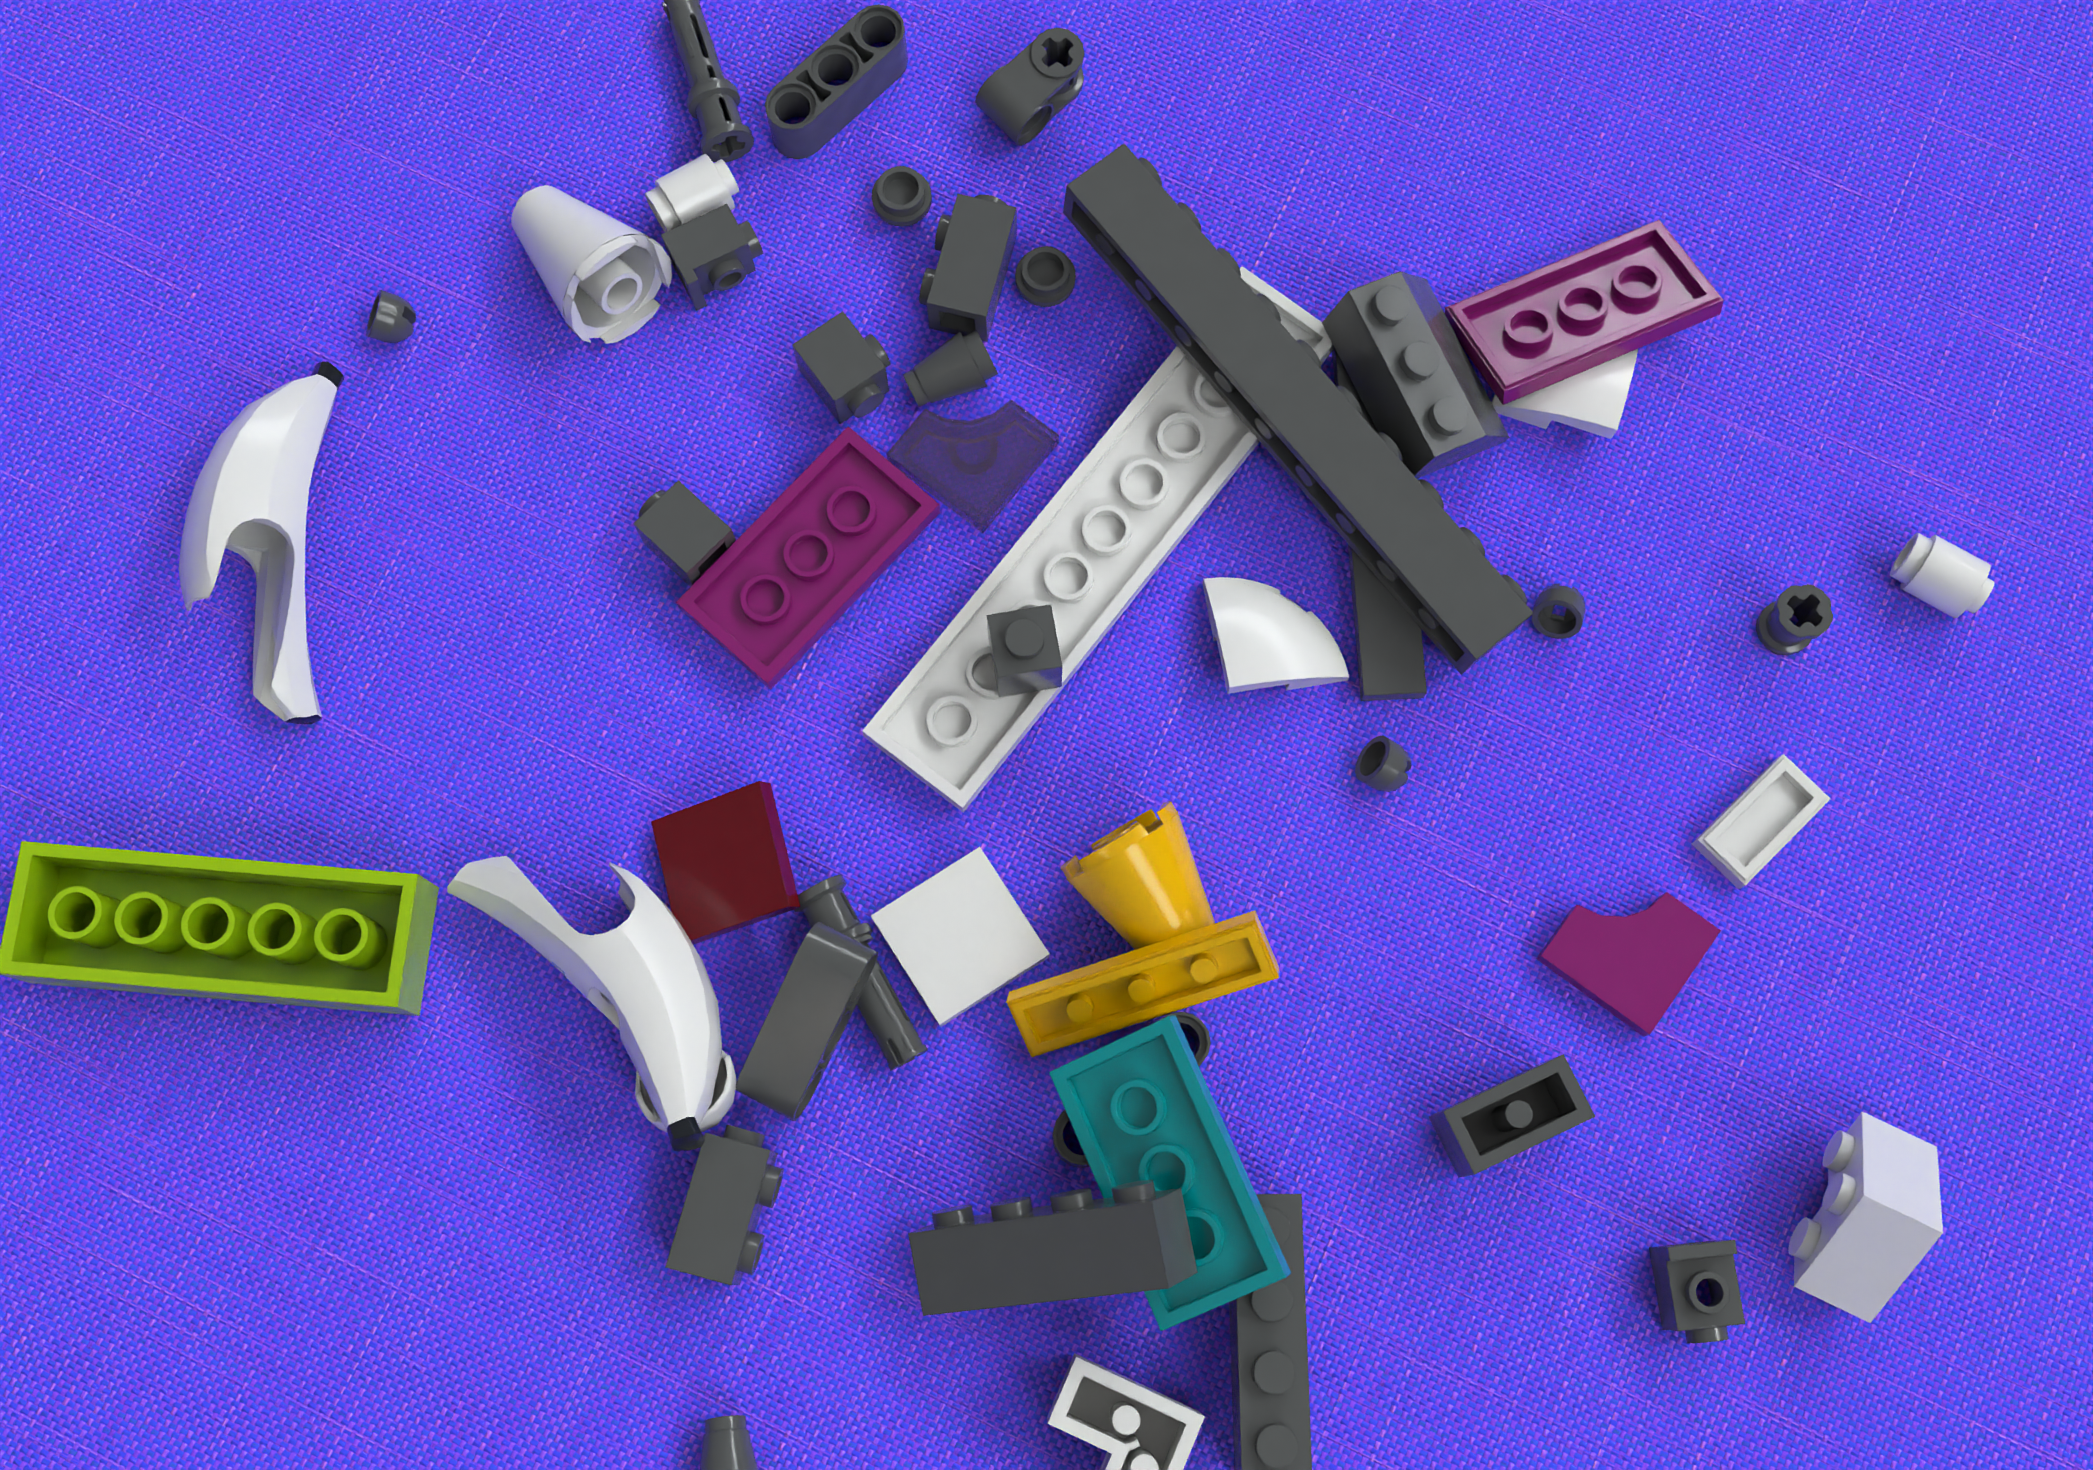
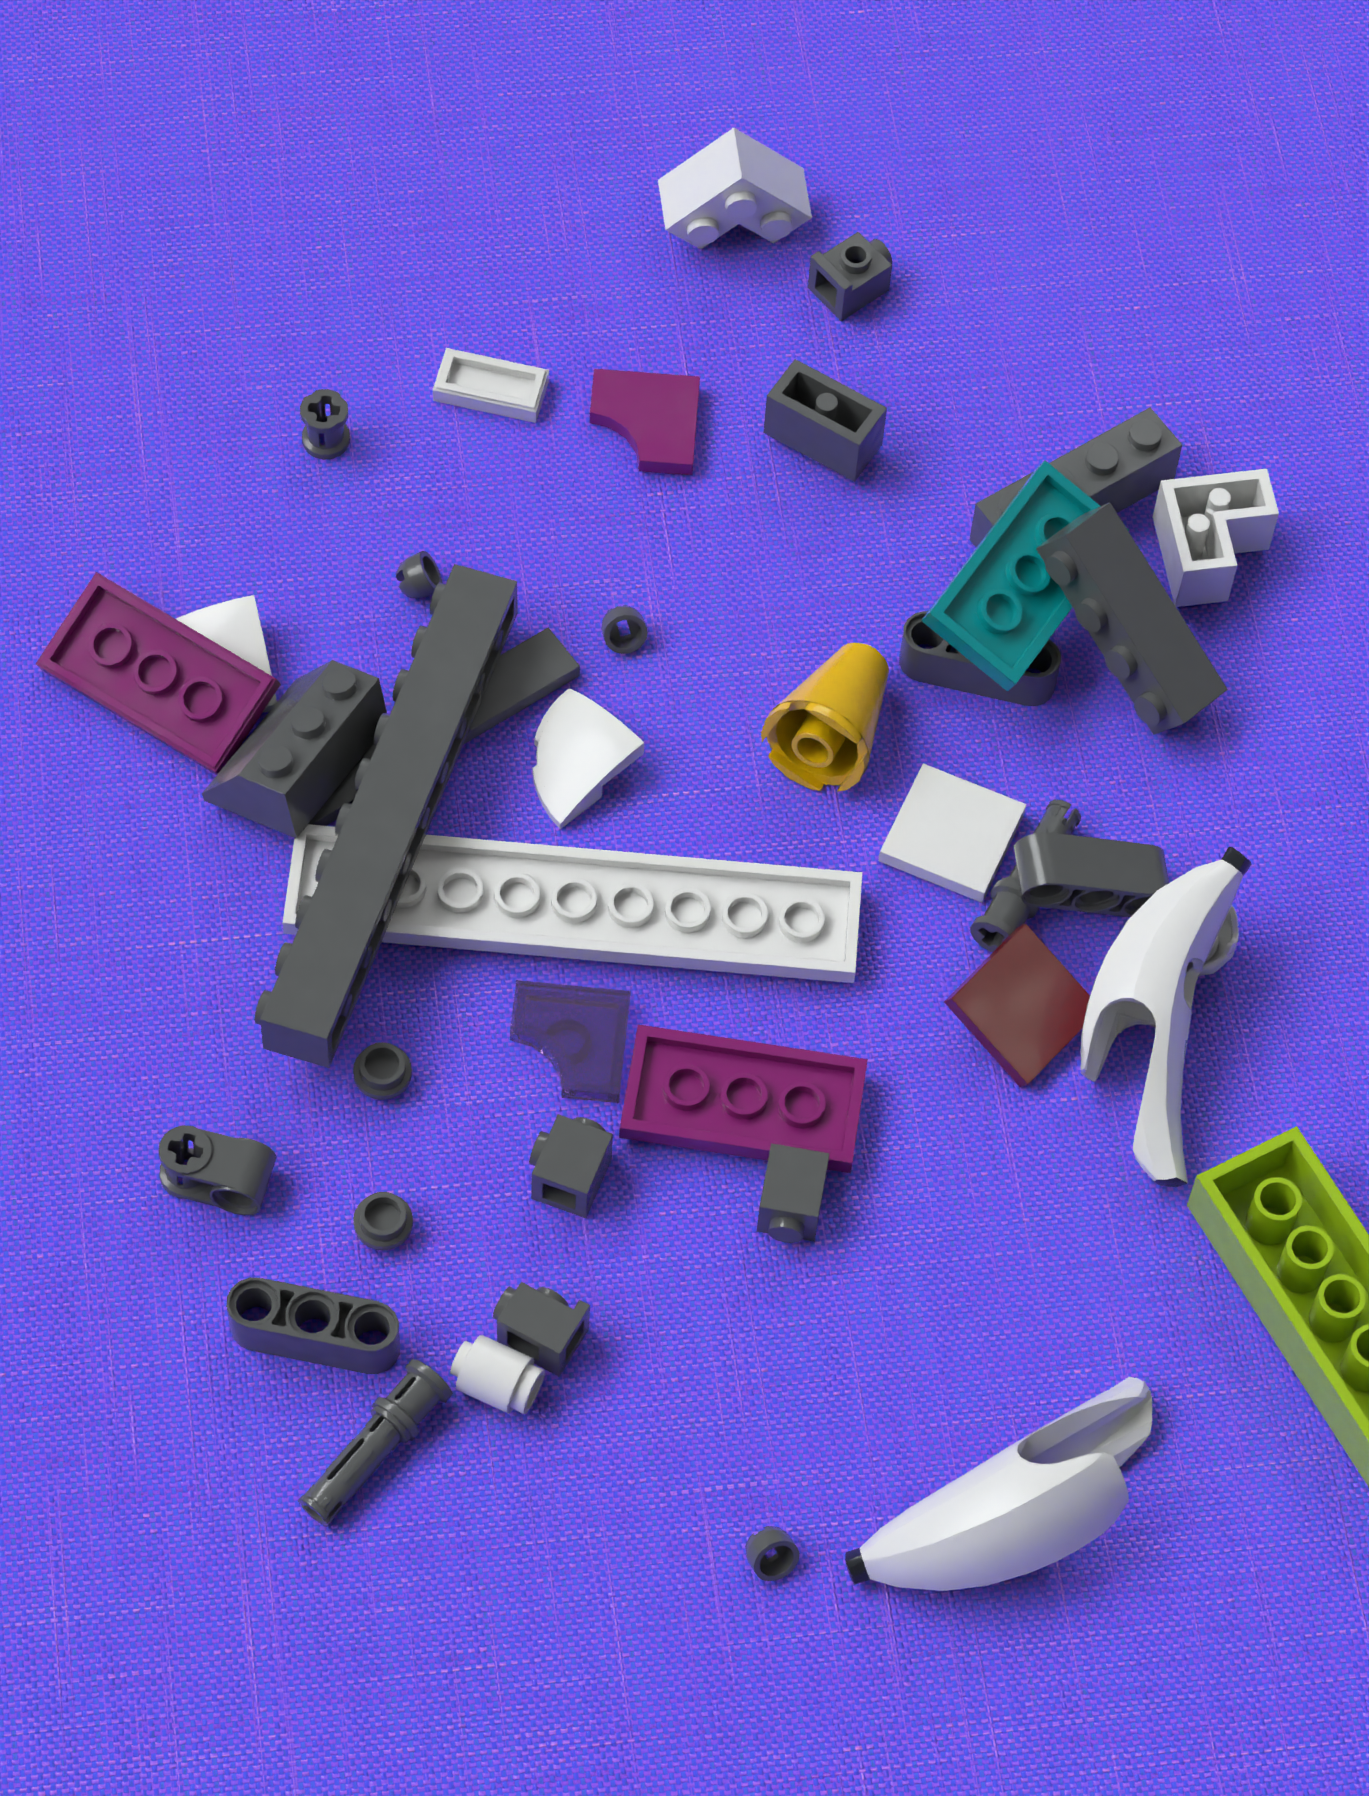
camera: 125 degrees left, 15 degrees down
(591, 264) = (616, 1412): white cone -> none
(724, 1207) = (1280, 851): dark grey brick -> none
(951, 370) = (514, 1088): dark grey cone -> none
(971, 267) = (414, 1122): dark grey brick -> none
(1024, 650) = (722, 876): dark grey brick -> none
(1143, 984) = (906, 676): yellow tile -> none
(1942, 575) = (223, 351): white brick -> none

